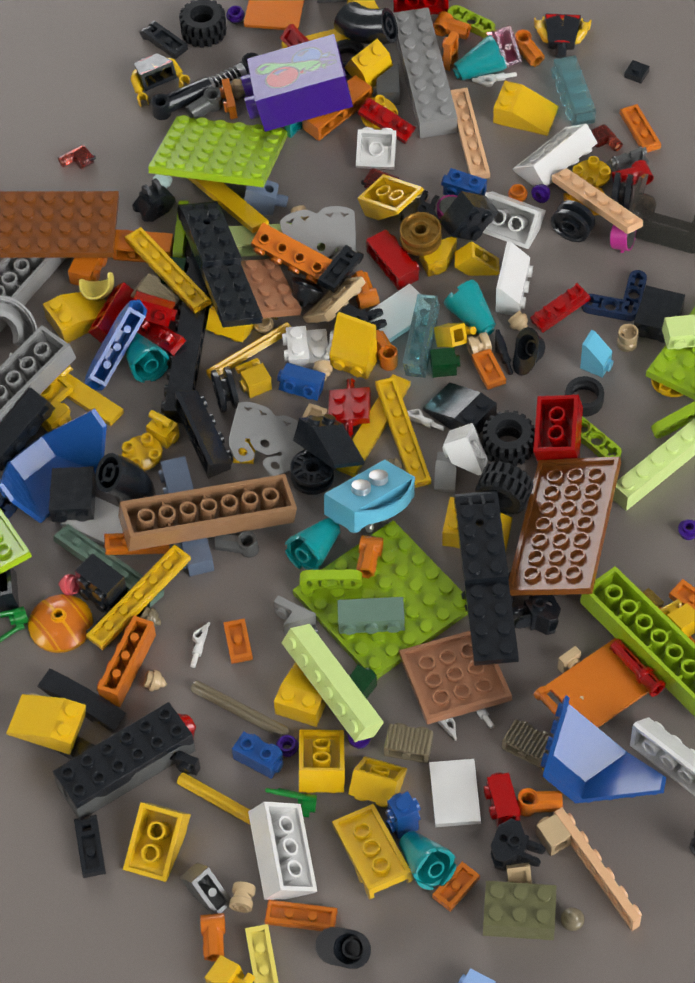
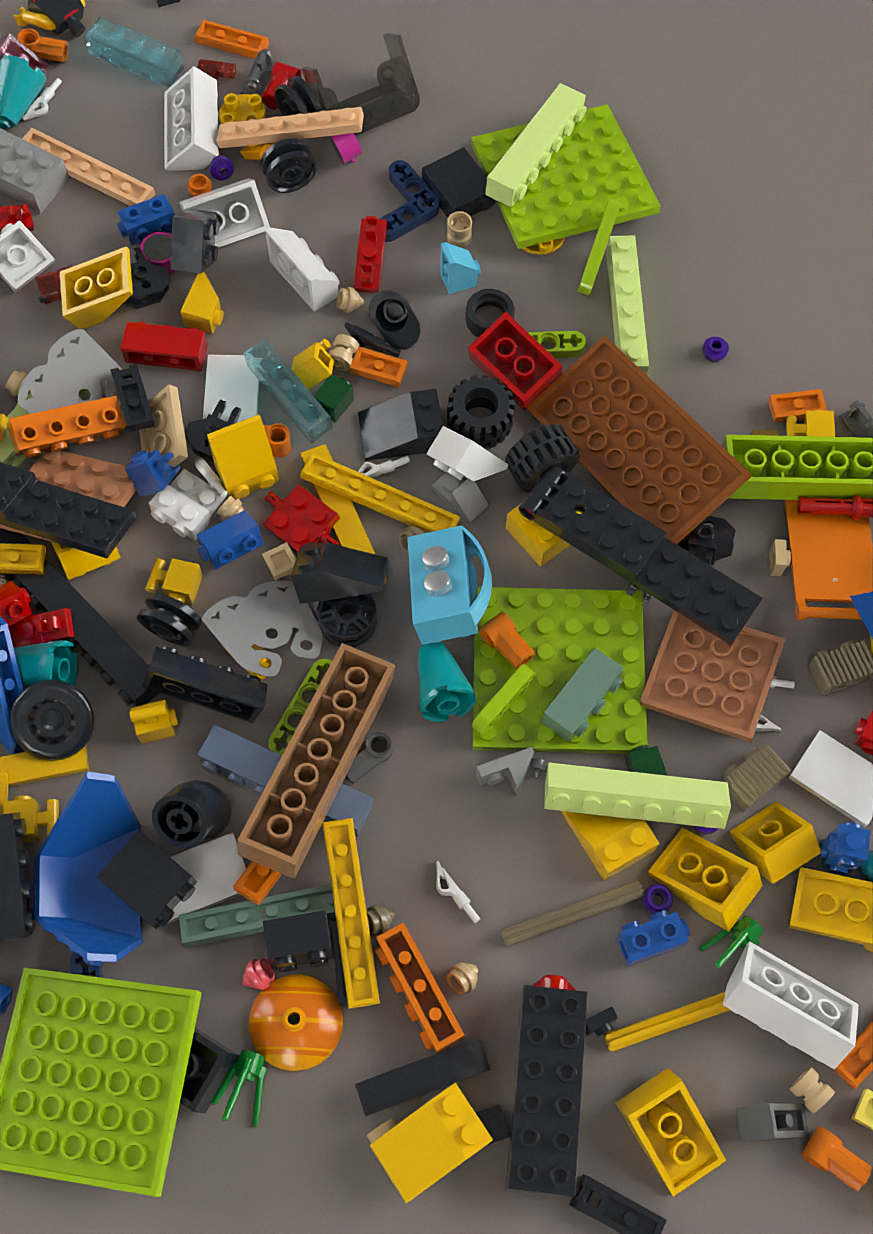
camera: 55 degrees left, 10 degrees up
(122, 384) = (52, 720): none -> black wheel
(143, 450) = (158, 764): yellow dish -> none
(238, 641) = (488, 849): orange plate -> none
(249, 350) = (135, 562): yellow axle -> none
(302, 311) = (151, 471): none -> blue brick
(305, 291) = (120, 449): black piece -> none
(368, 296) = (189, 398): orange piece -> none
(420, 233) = (175, 282): pearl gold wheel -> none
(471, 307) = (298, 324): teal cone -> none
(476, 261) = (242, 279): yellow slope -> none
(524, 109) = (108, 106): yellow slope -> none

